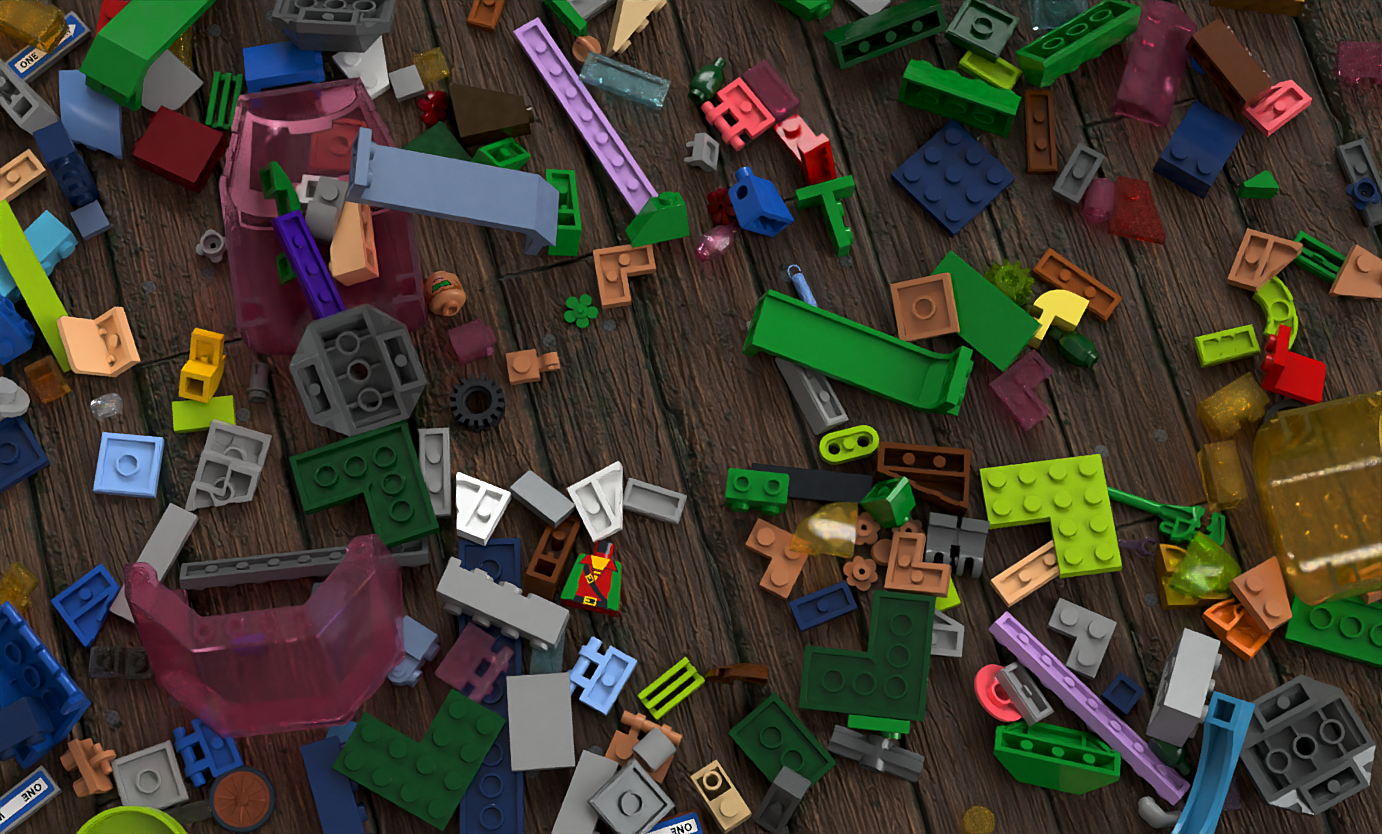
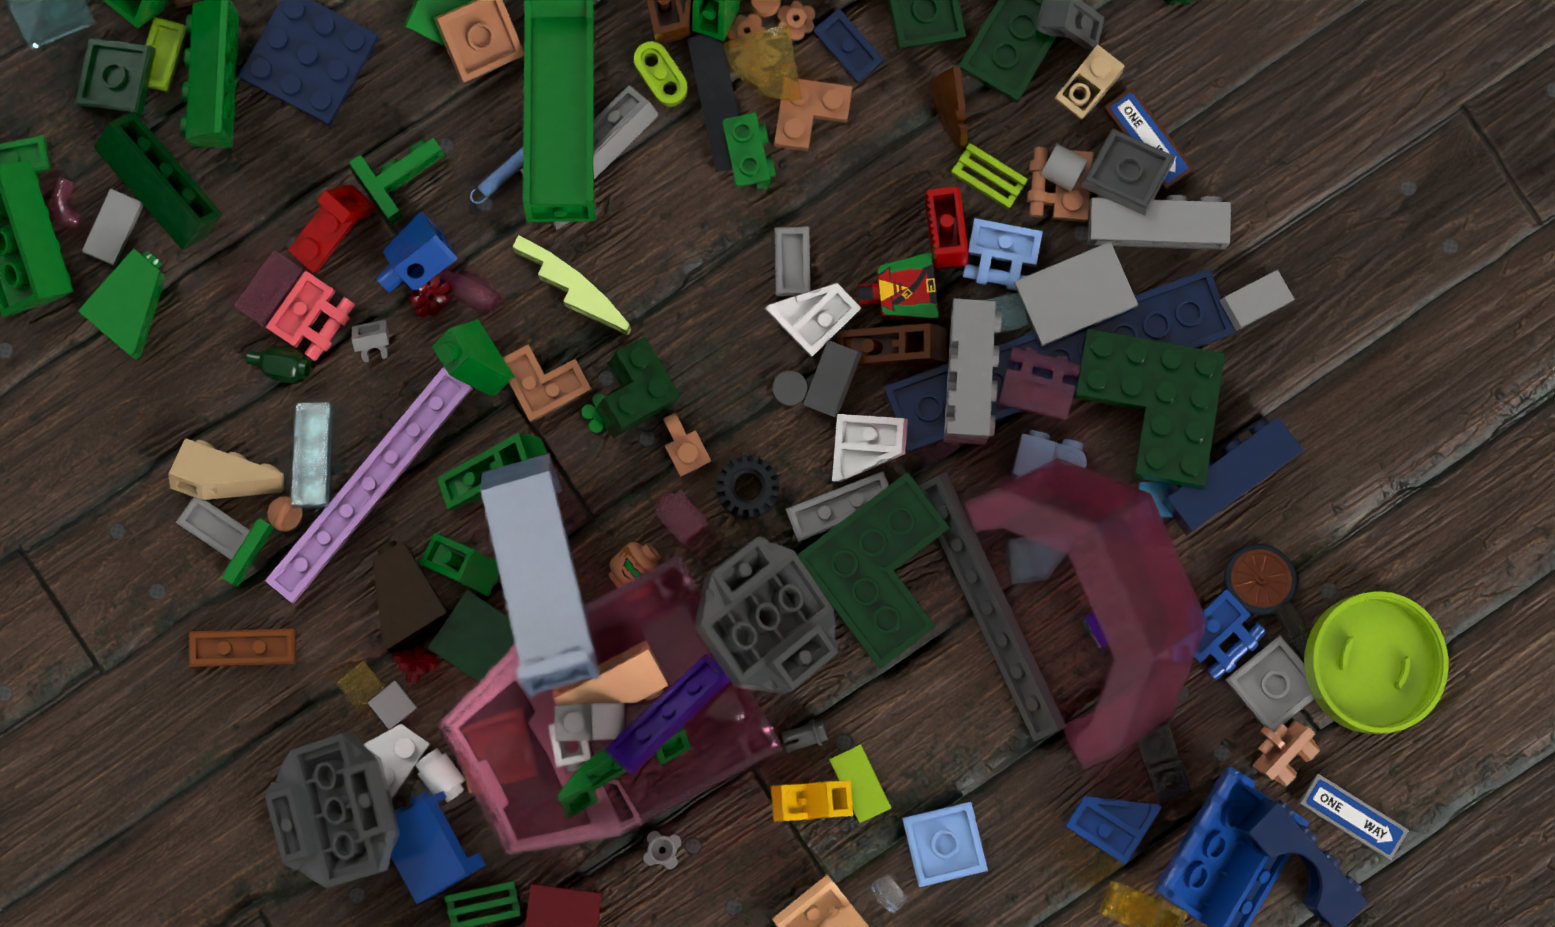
camera: 105 degrees left, 10 degrees up
(161, 550) = (1043, 772): light grey tile -> none
(228, 466) = (910, 732): light grey slope -> none
(547, 464) = (789, 388): none -> dark grey tile
(581, 344) = (643, 392): none -> dark green brick
(635, 631) = (946, 227): none -> red brick
(684, 323) = (581, 294): none -> yellowish green slope

